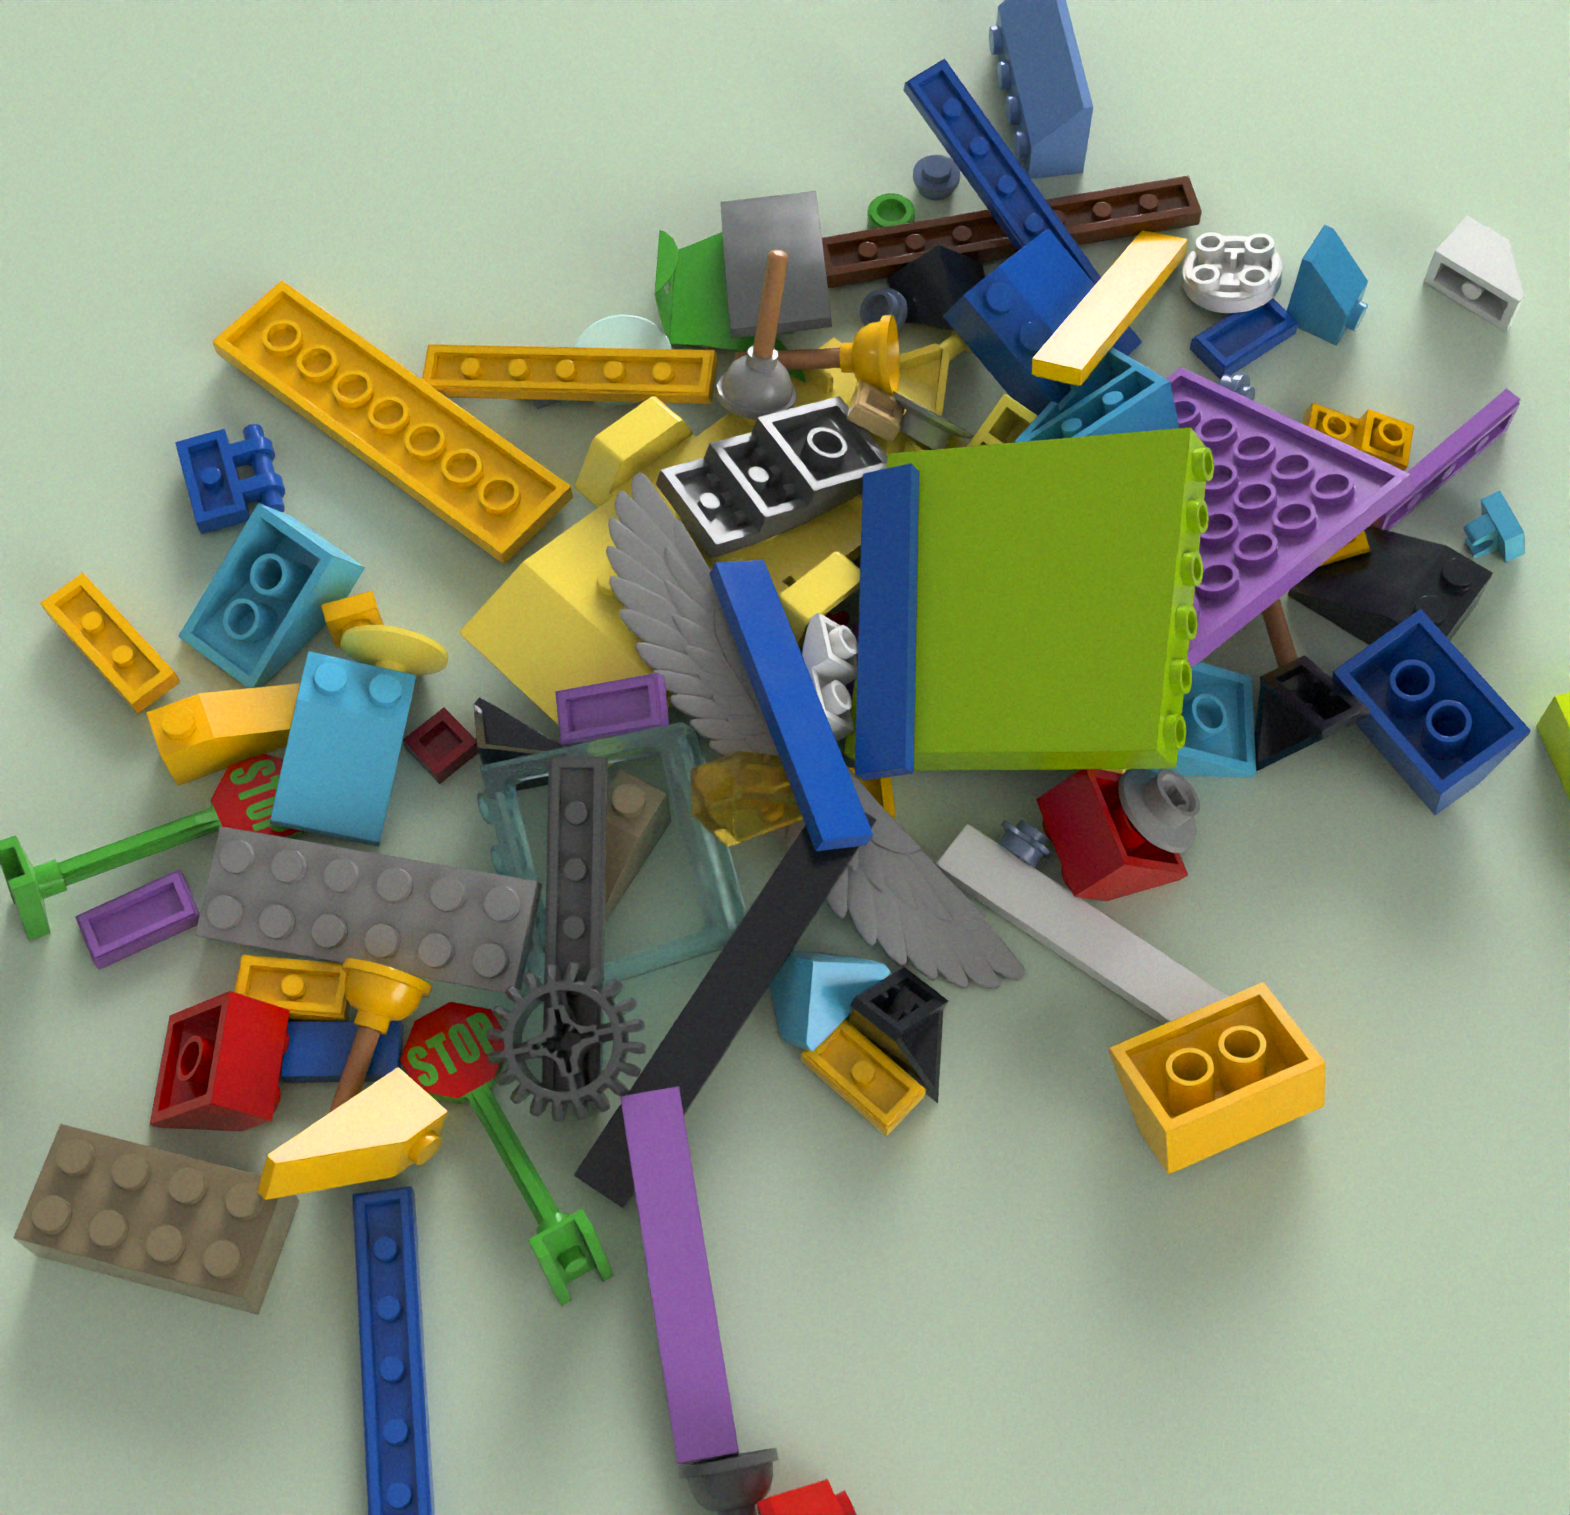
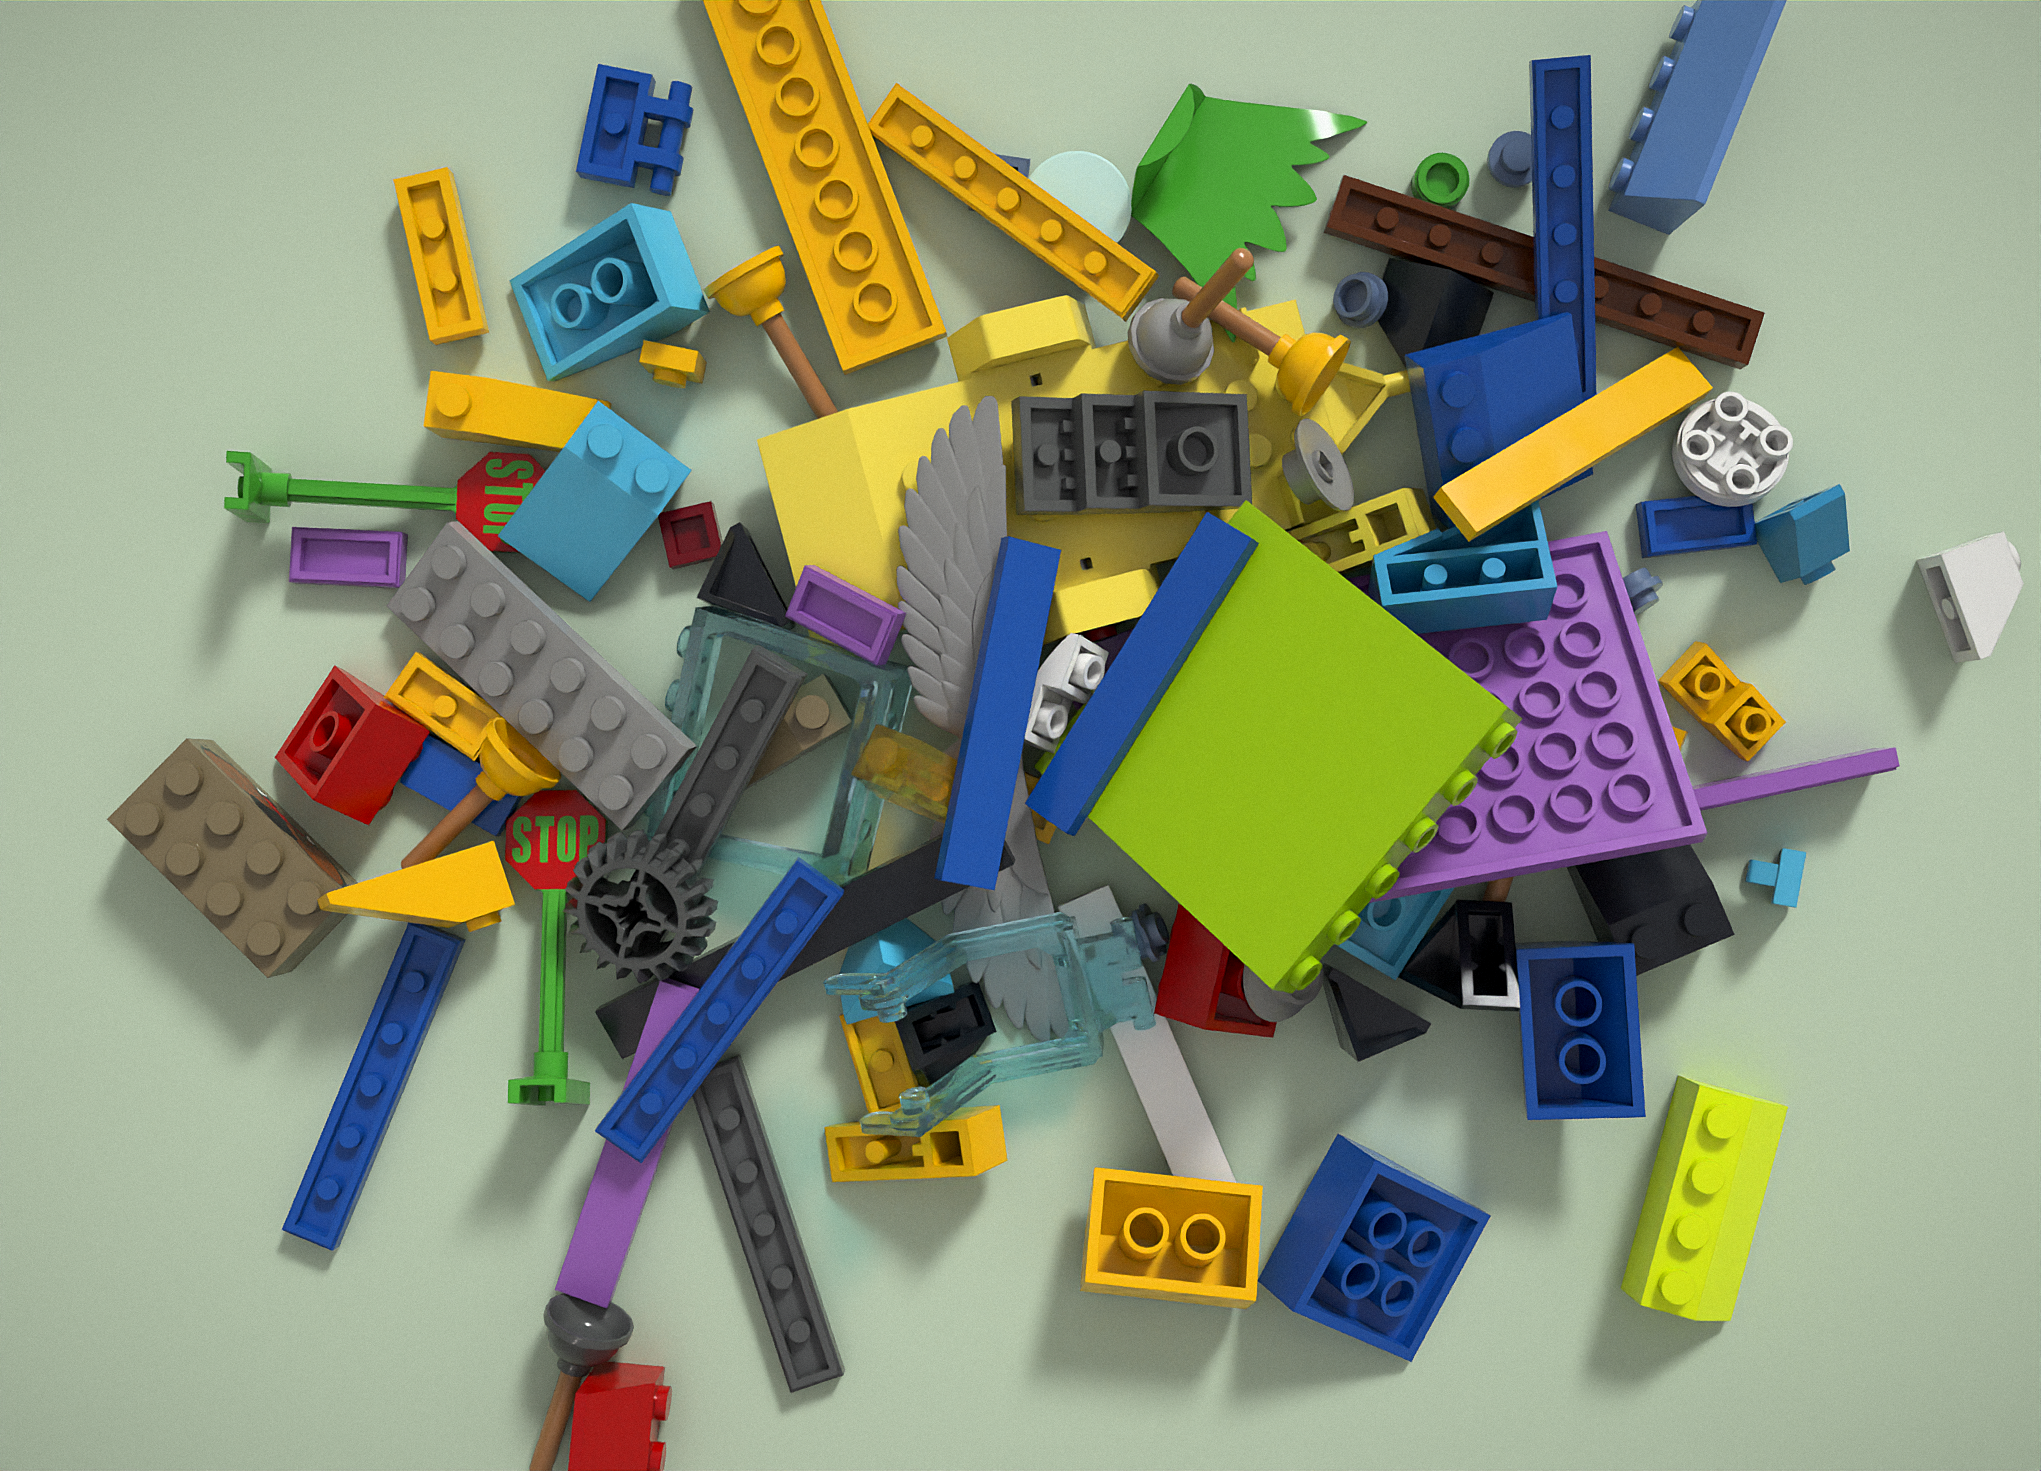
camera: 25 degrees right, 25 degrees up
(393, 530) = (754, 291): none -> yellow piece
(394, 649) = (680, 436): light yellow dish -> none
(689, 1094) = (719, 1010): none -> blue tile
(767, 224) = (1279, 192): dark grey slope -> none
(847, 1291) = (767, 1226): none -> dark grey tile
(876, 412) = (1269, 431): tan tile -> none
(937, 1128) = (958, 1146): none -> yellow slope
(1000, 896) = (1090, 987): none -> clear light blue piece
(1249, 803) = (1365, 1019): none -> black slope
(1394, 989) = (1372, 1249): none -> blue slope

